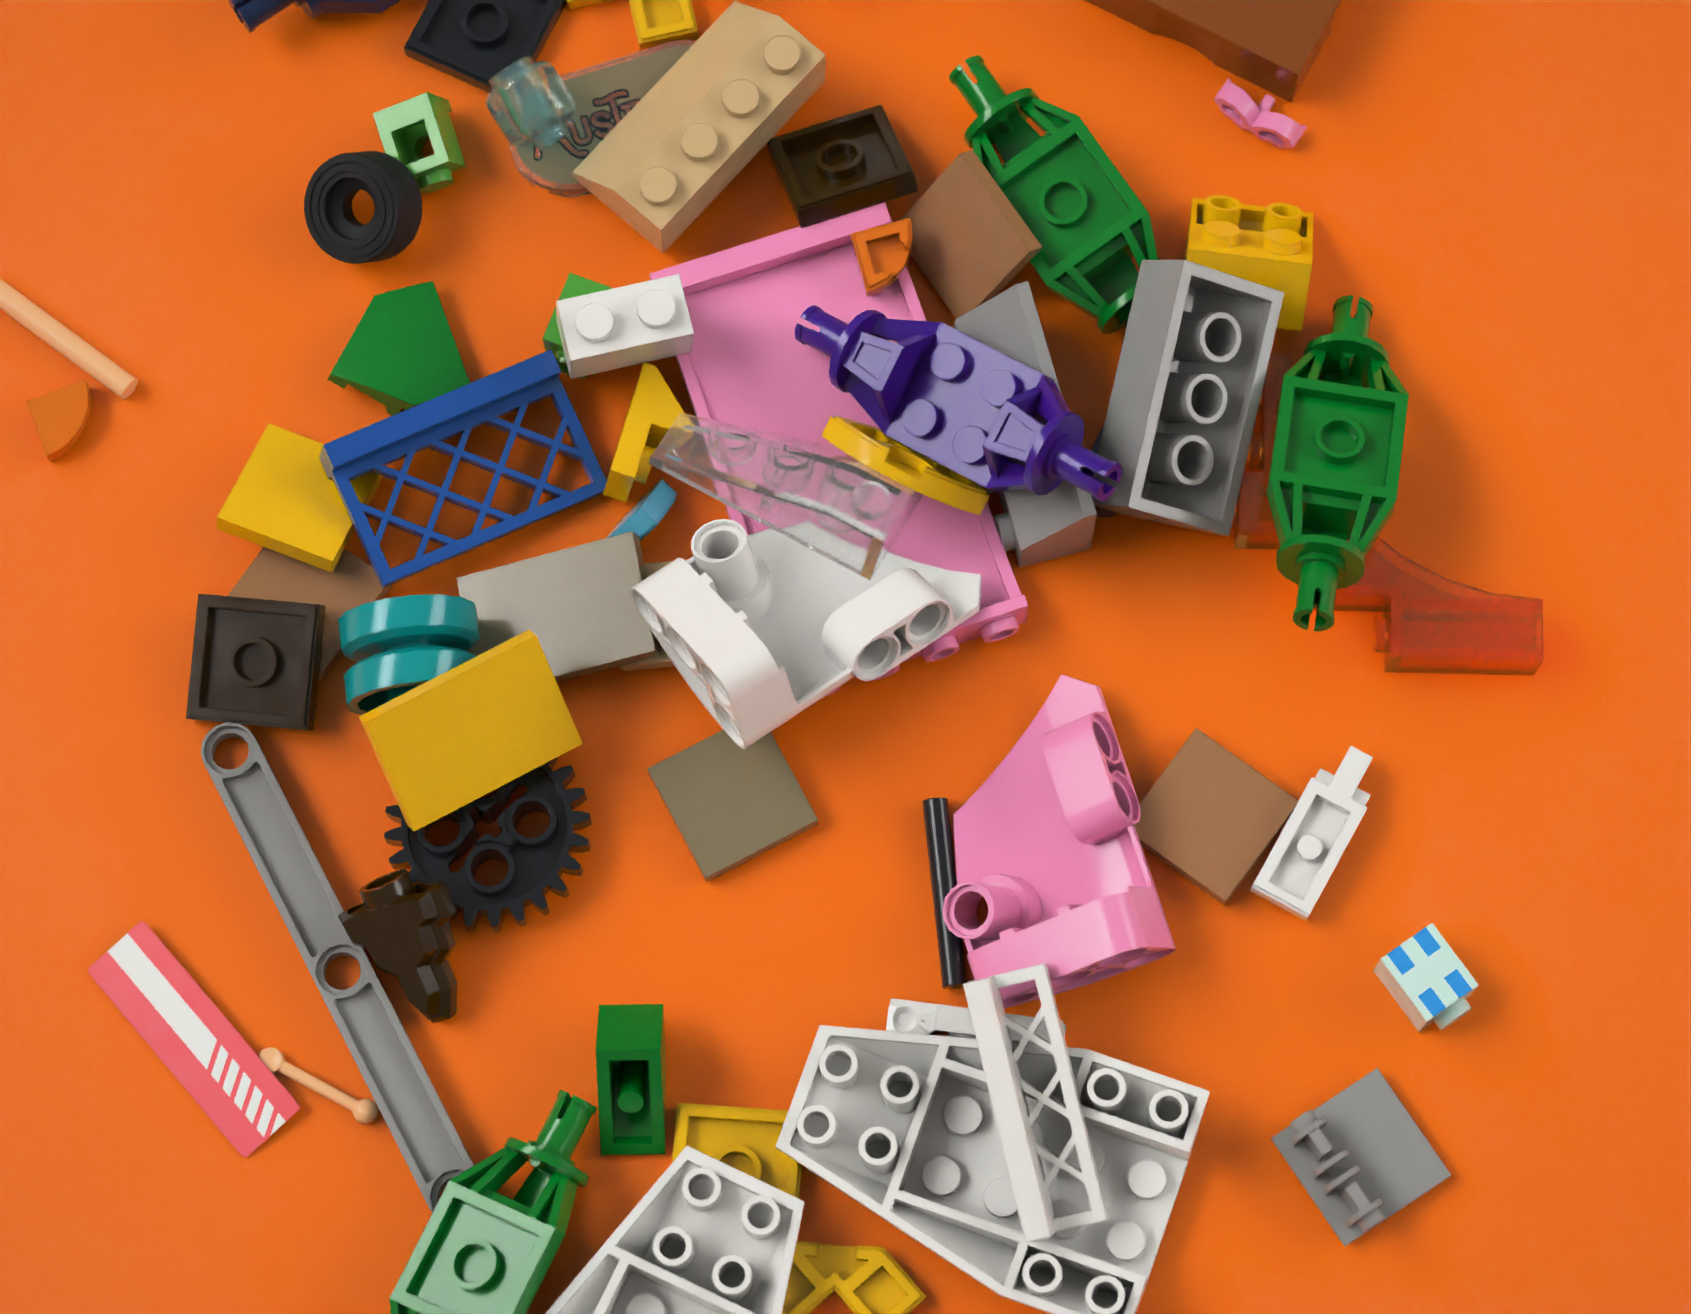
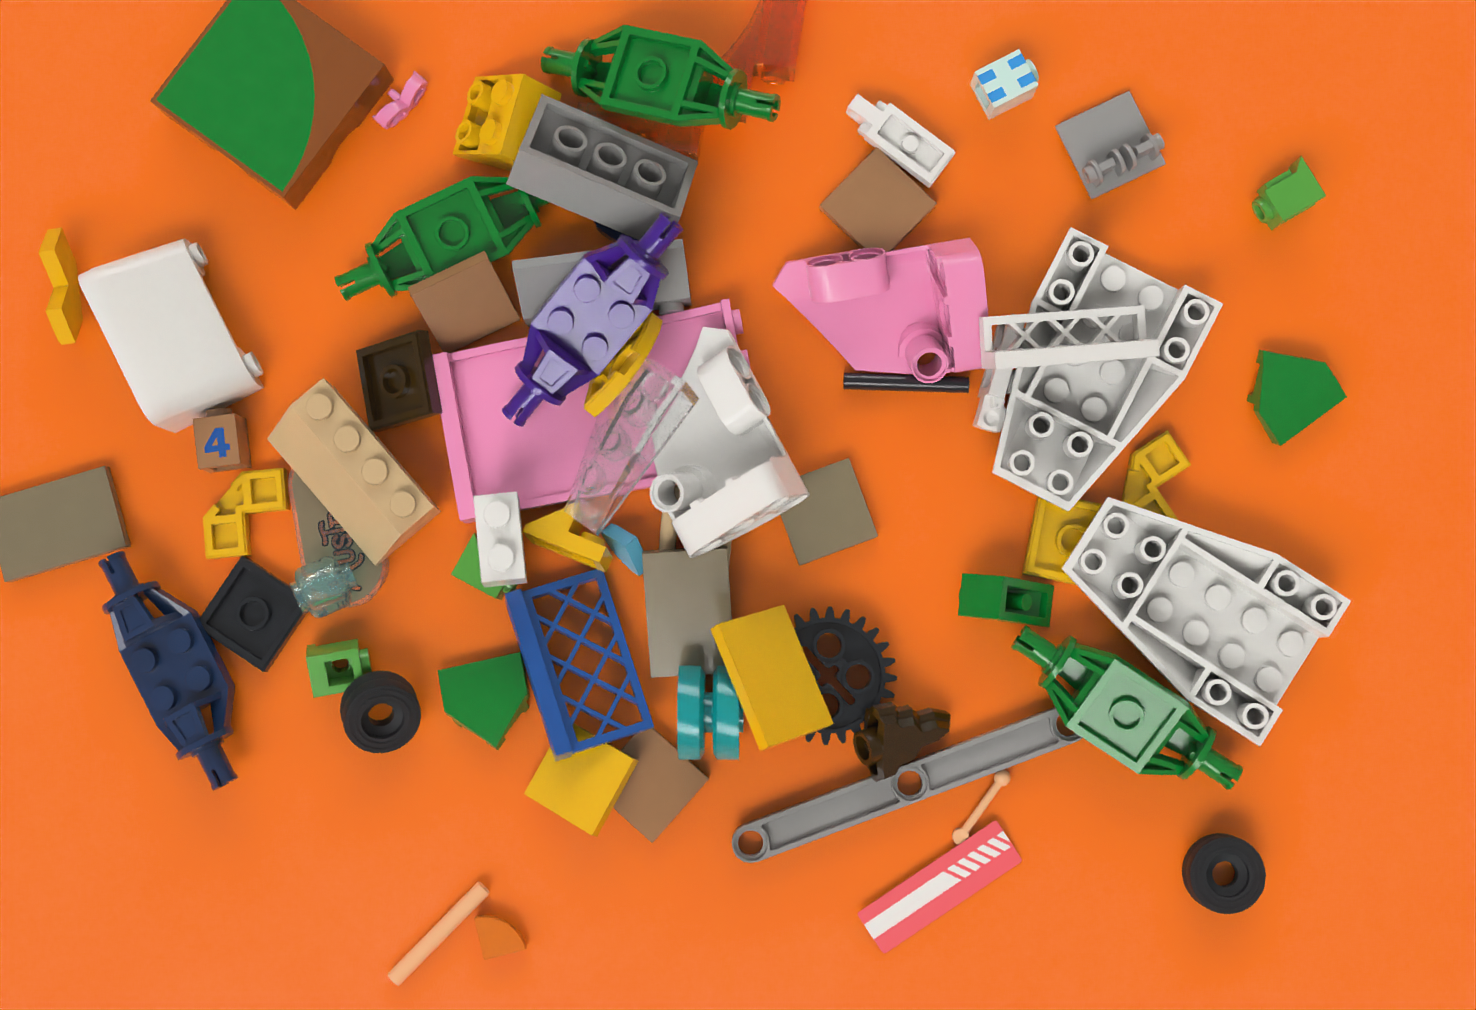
camera: 80 degrees left, 10 degrees up
(255, 662) = (692, 819): dark brown tile -> none
(882, 253) = (469, 360): orange tile -> none

